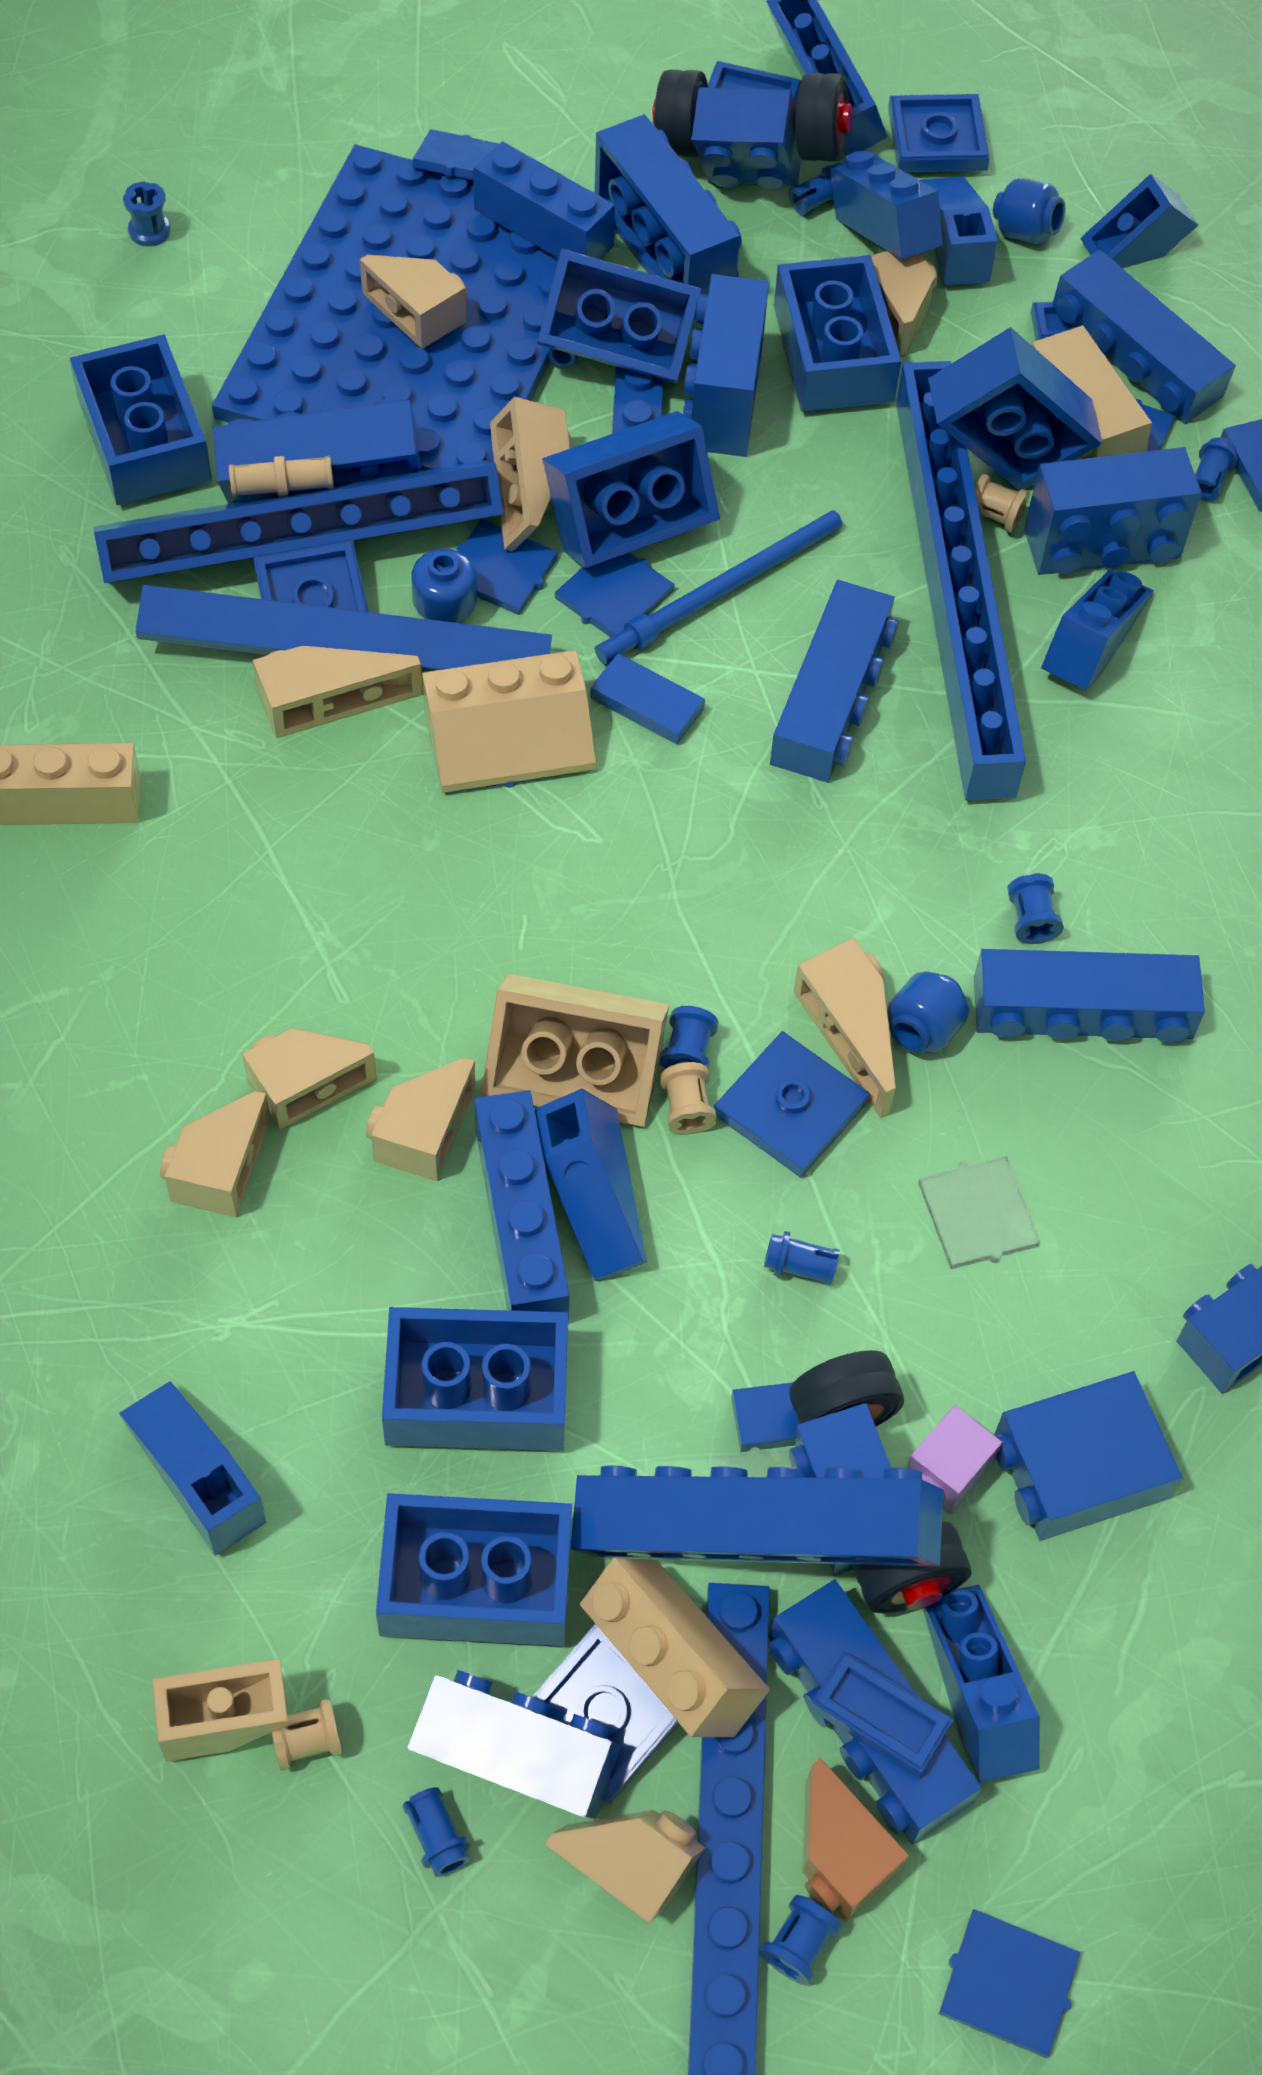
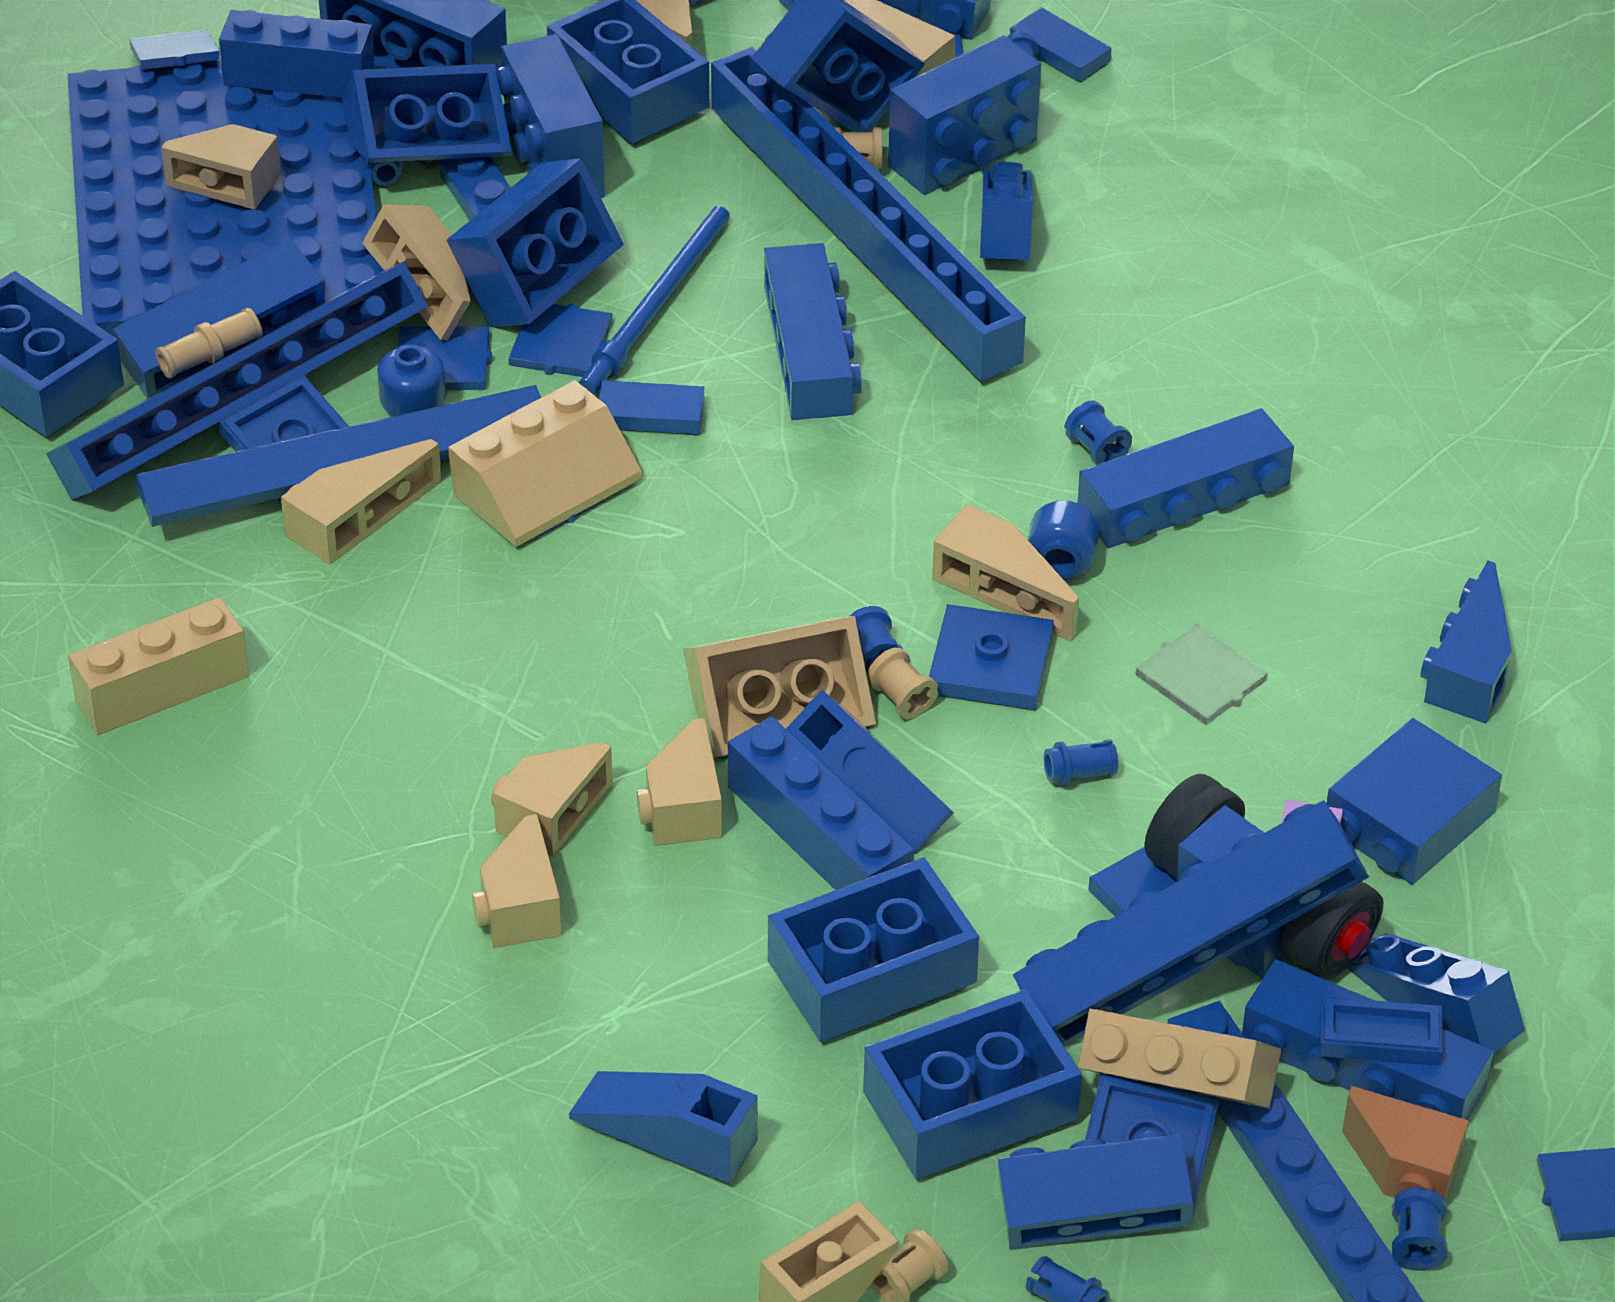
camera: 25 degrees left, 15 degrees down
(632, 1856) = (1244, 1225): tan slope -> none

